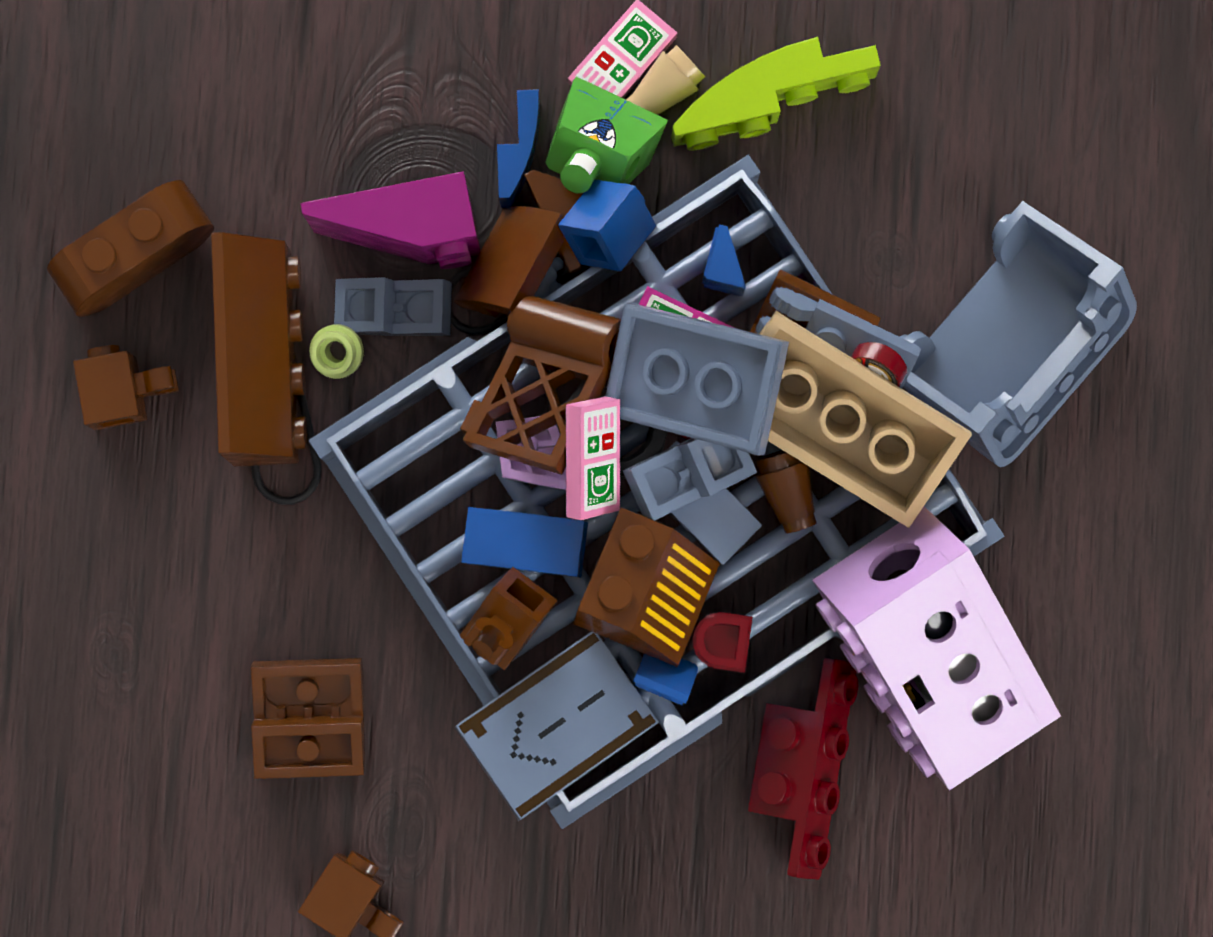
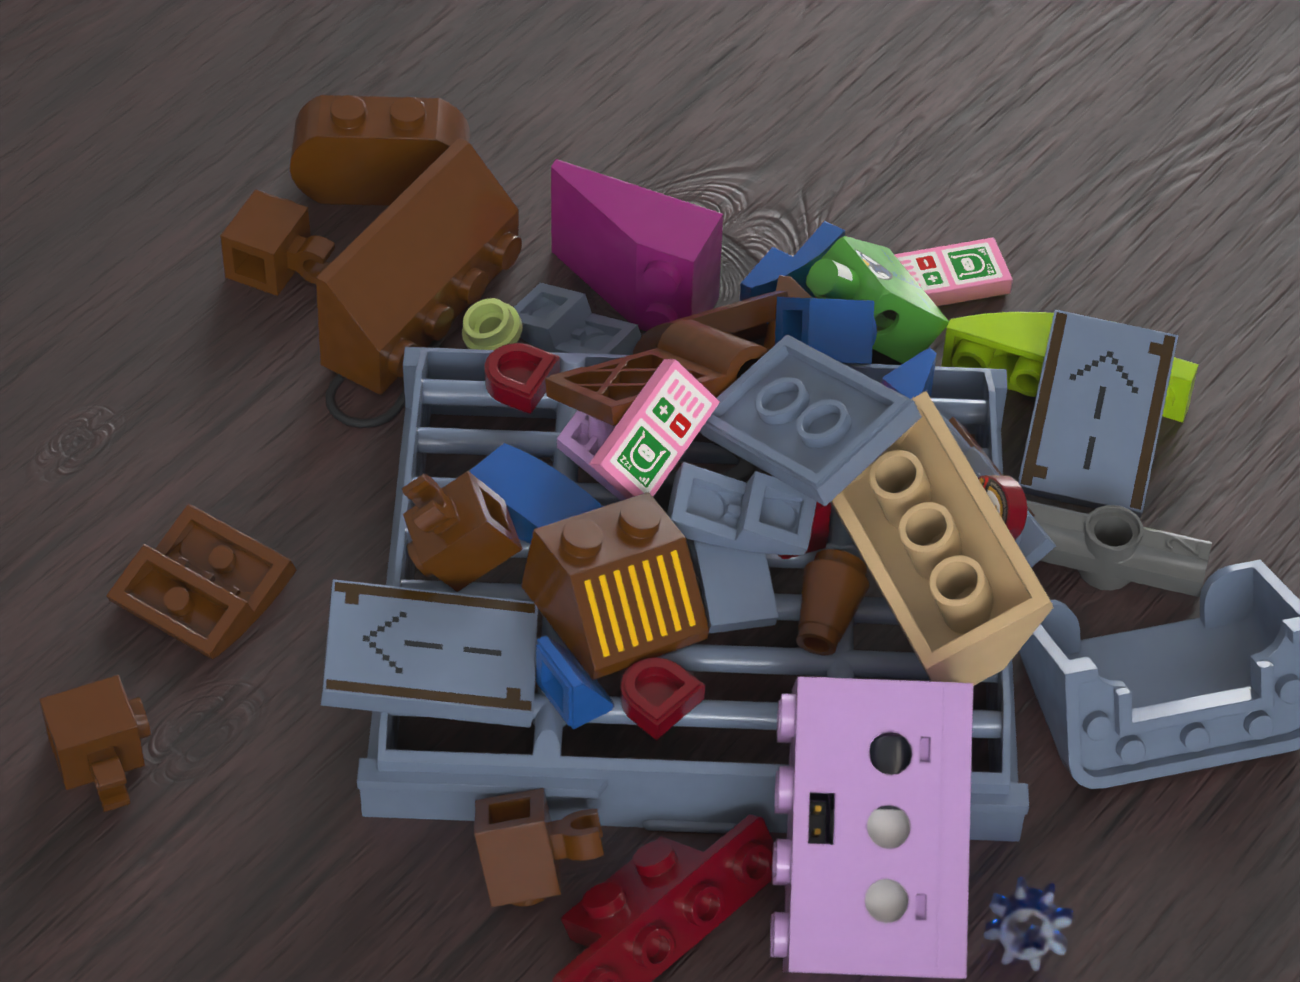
camera: 35 degrees right, 35 degrees down
(427, 430) = (518, 374): none -> dark red tile
(667, 82) = (974, 298): tan cone -> none
(697, 789) = (524, 847): none -> reddish brown brick
(829, 139) = (1097, 412): none -> sand blue tile
(938, 238) = (1116, 549): none -> dark grey piece
(1048, 610) = (1037, 939): none -> clear blue gear

